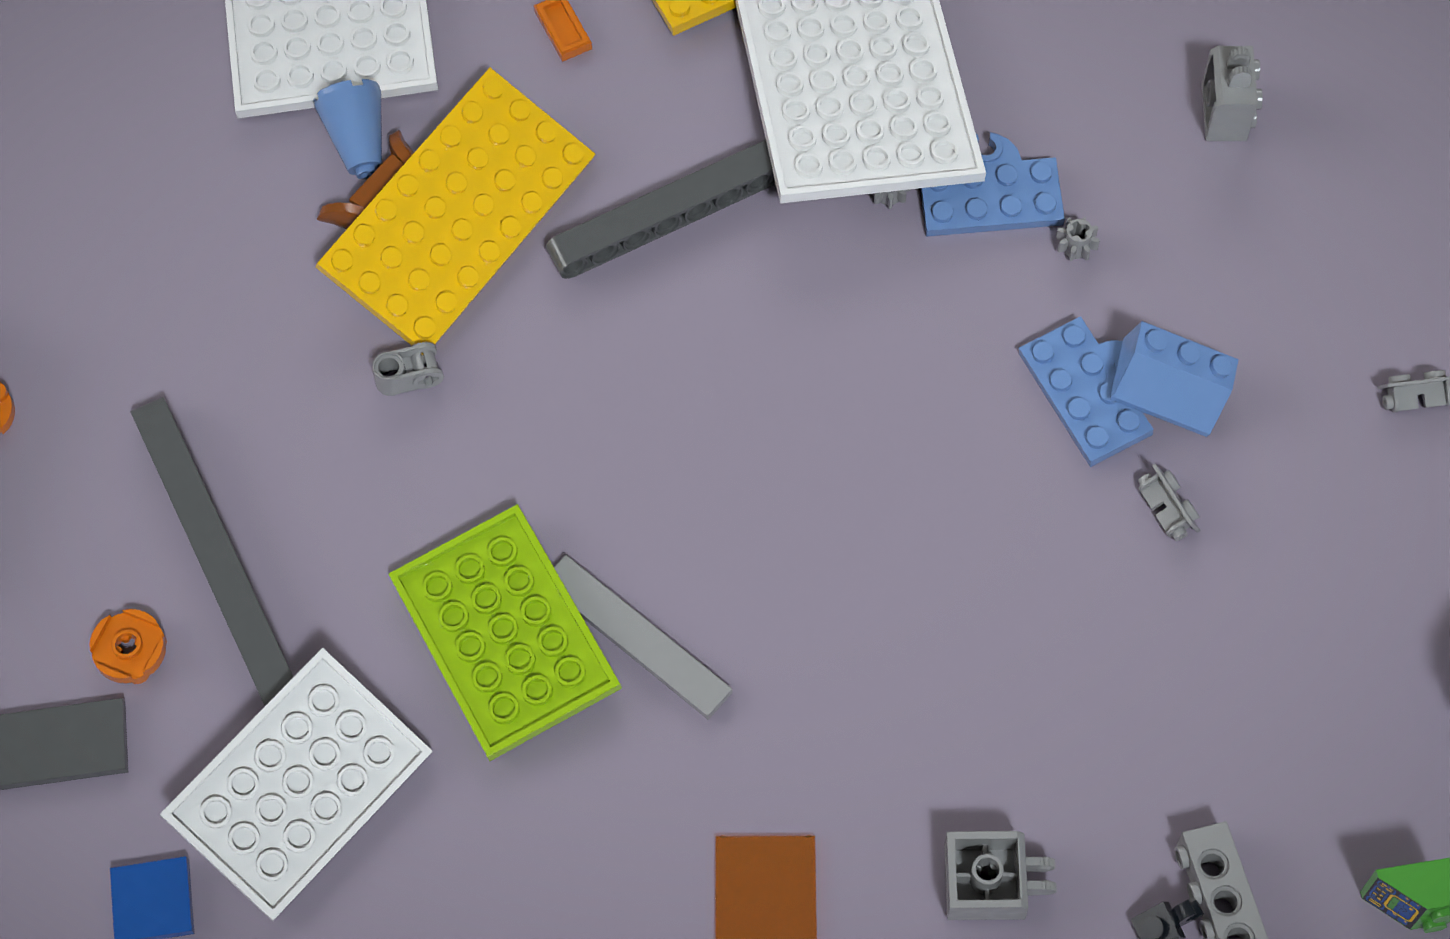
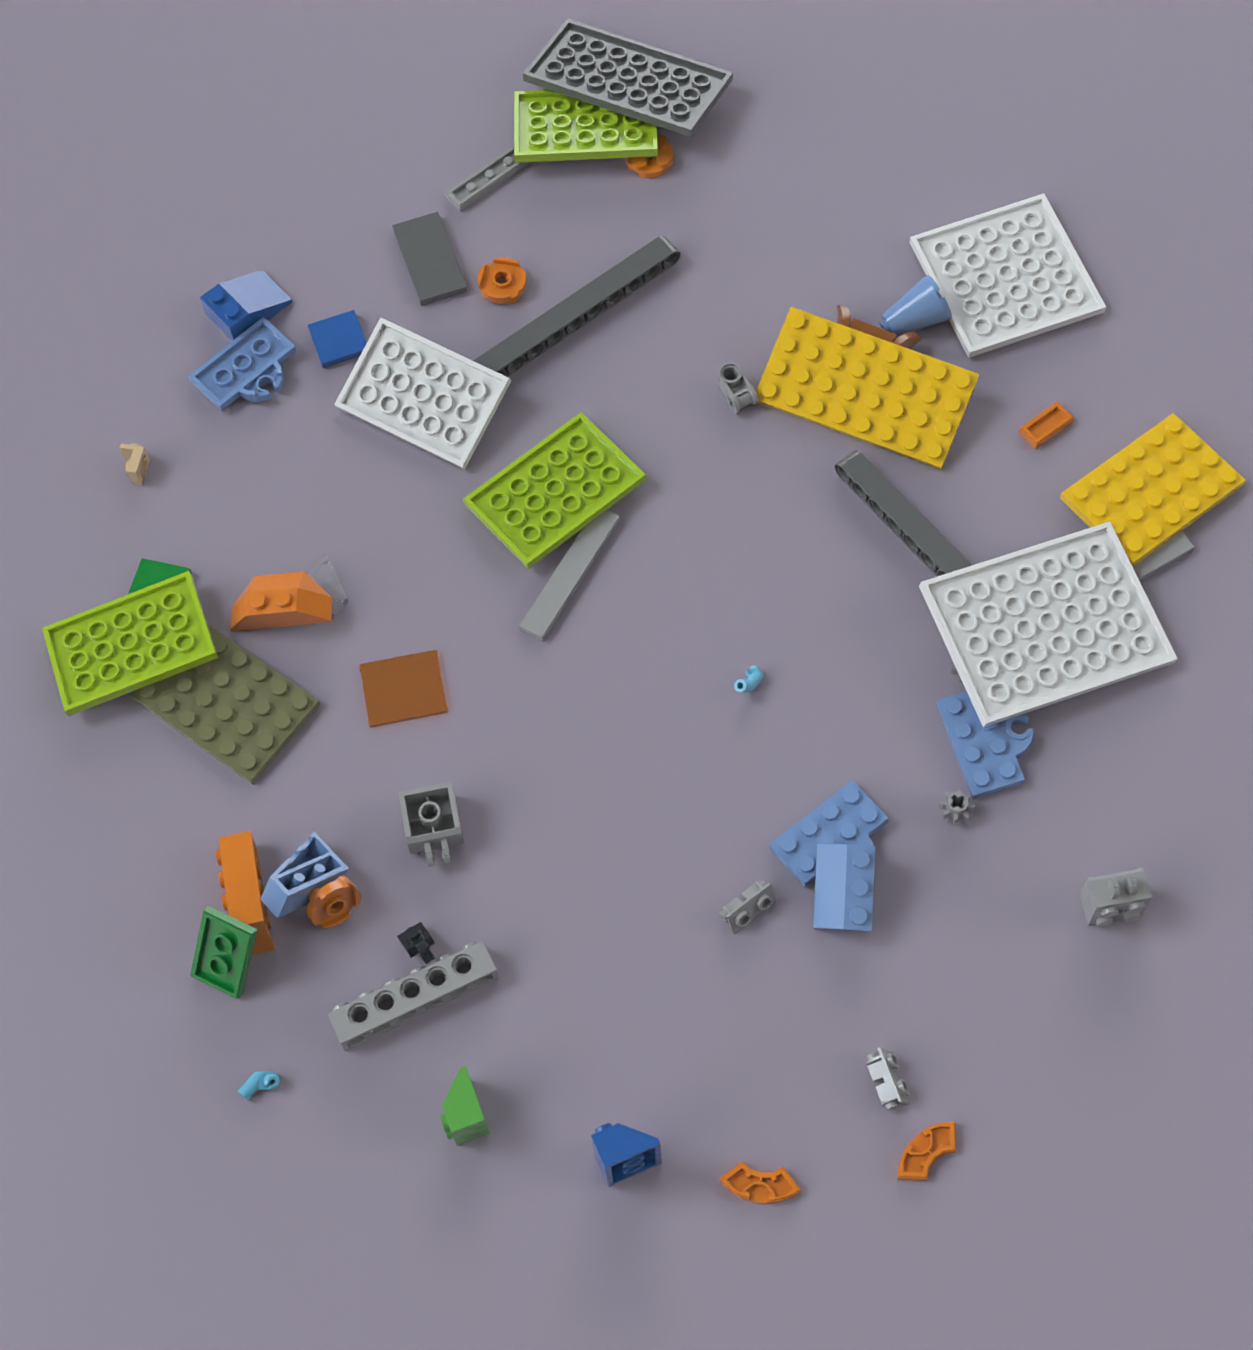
camera: 80 degrees right, 0 degrees up
(855, 437) = (754, 676): none -> medium azure arm

